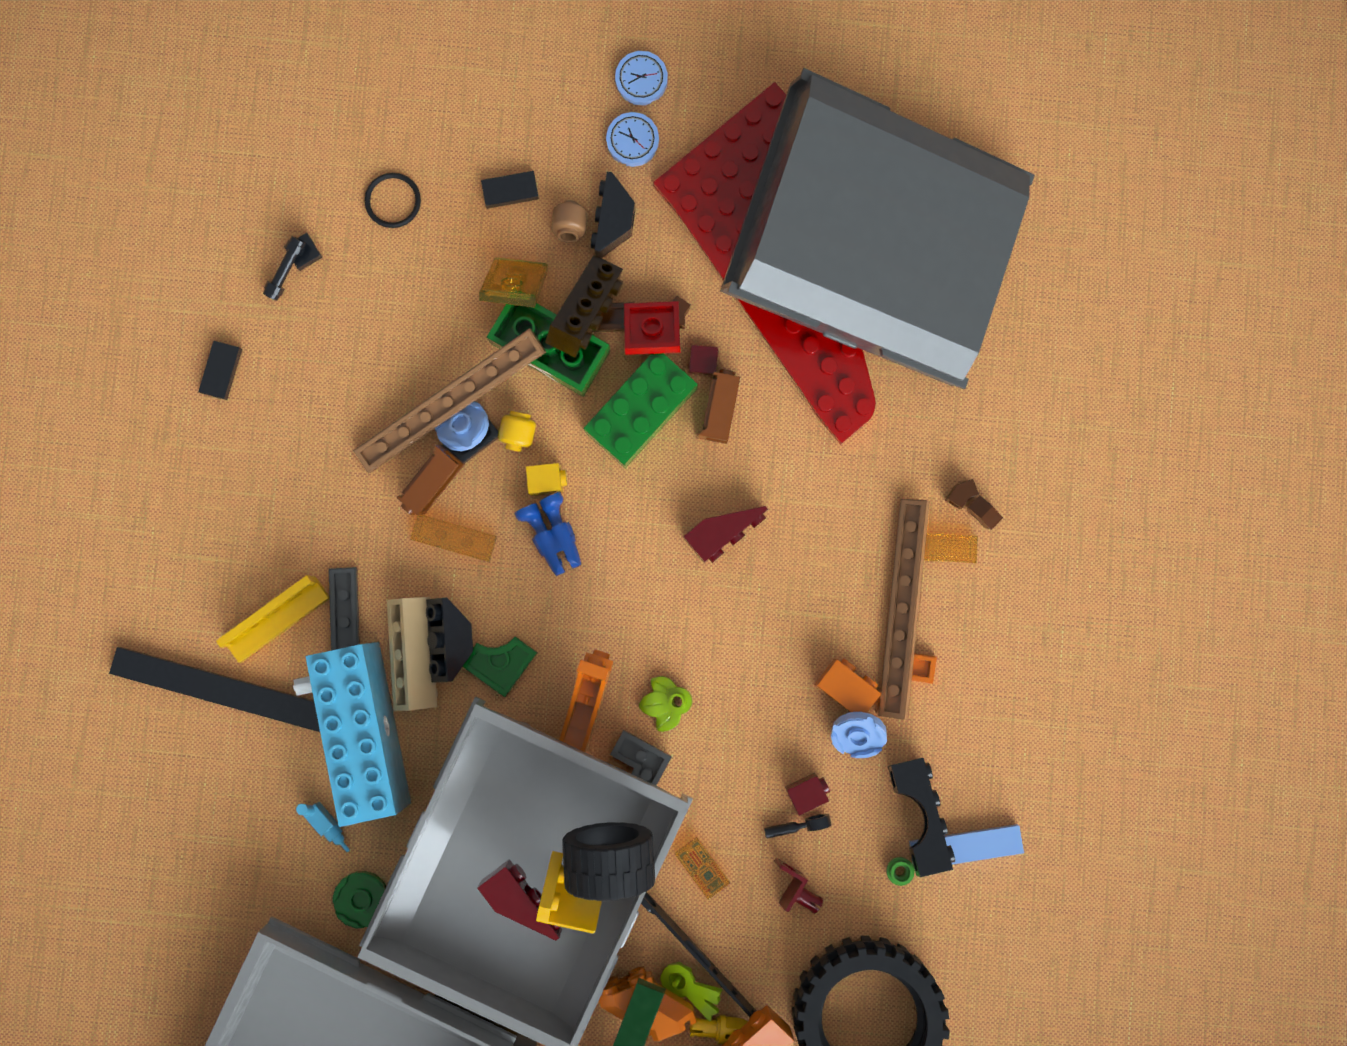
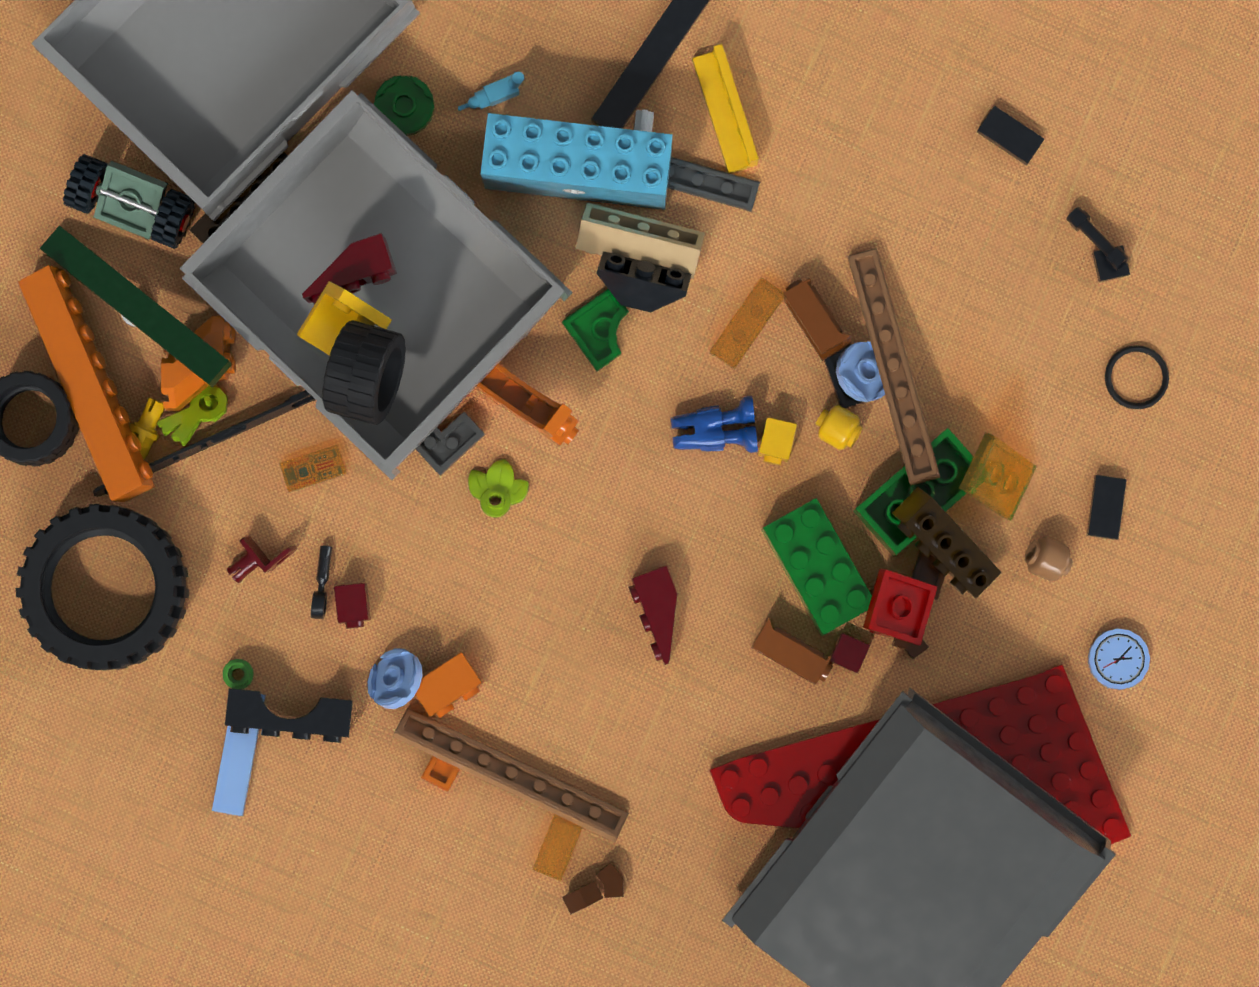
camera: 105 degrees right, 0 degrees up
(614, 216) = (1037, 608): black slope -> none
(641, 77) = (1184, 691): light blue tile -> none

